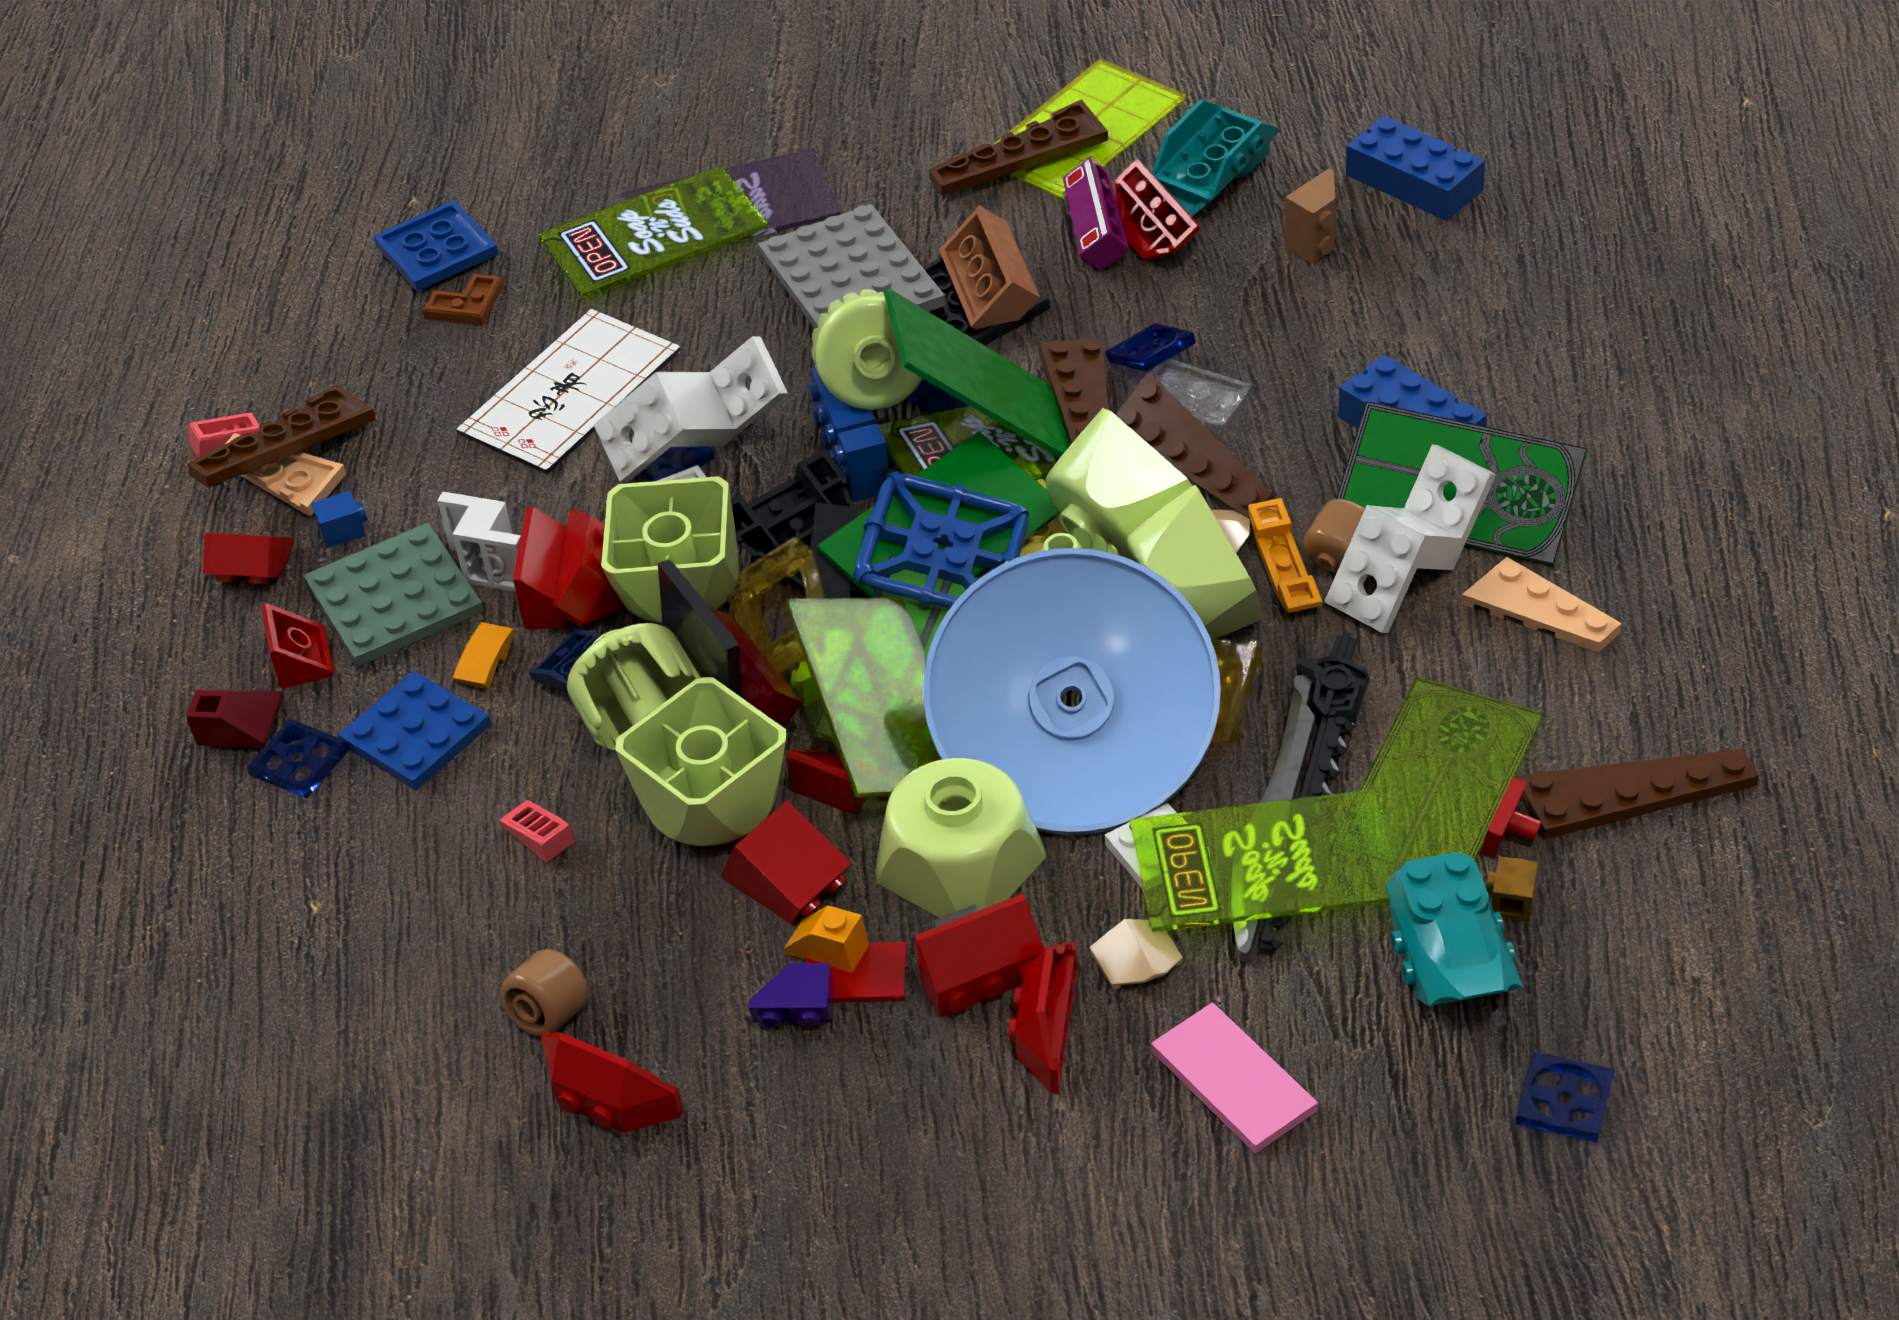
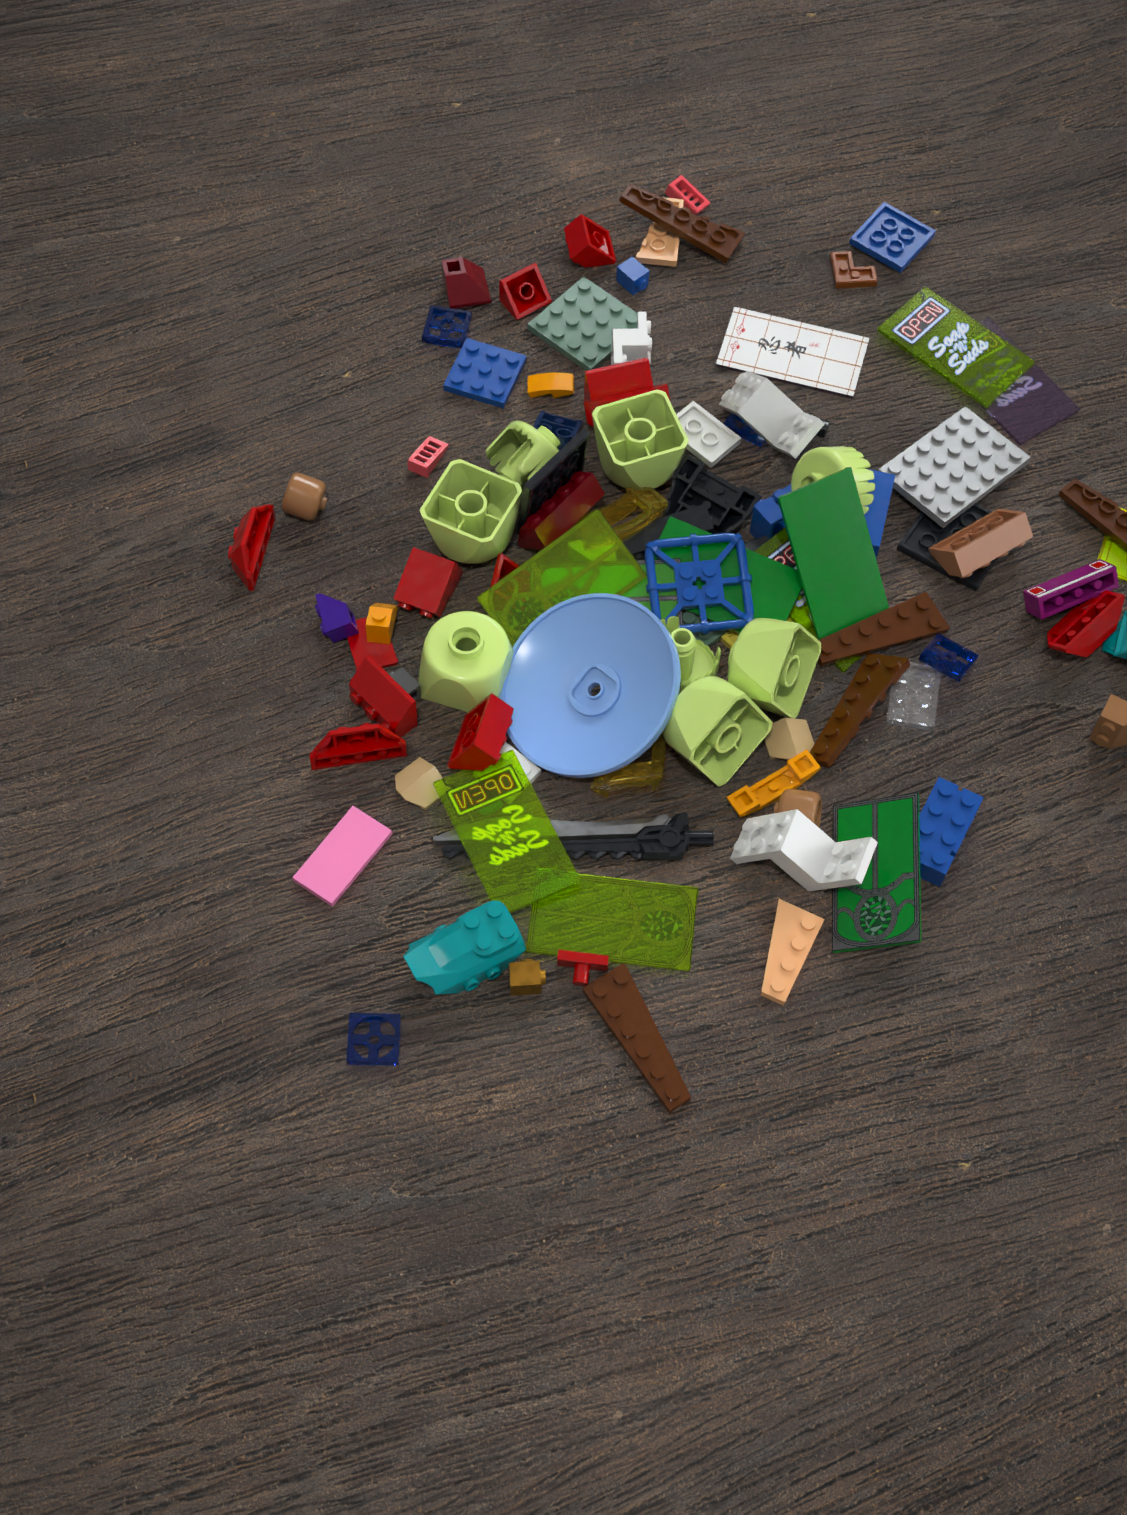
camera: 65 degrees right, 15 degrees up
(1095, 849) = (482, 735): none -> red slope

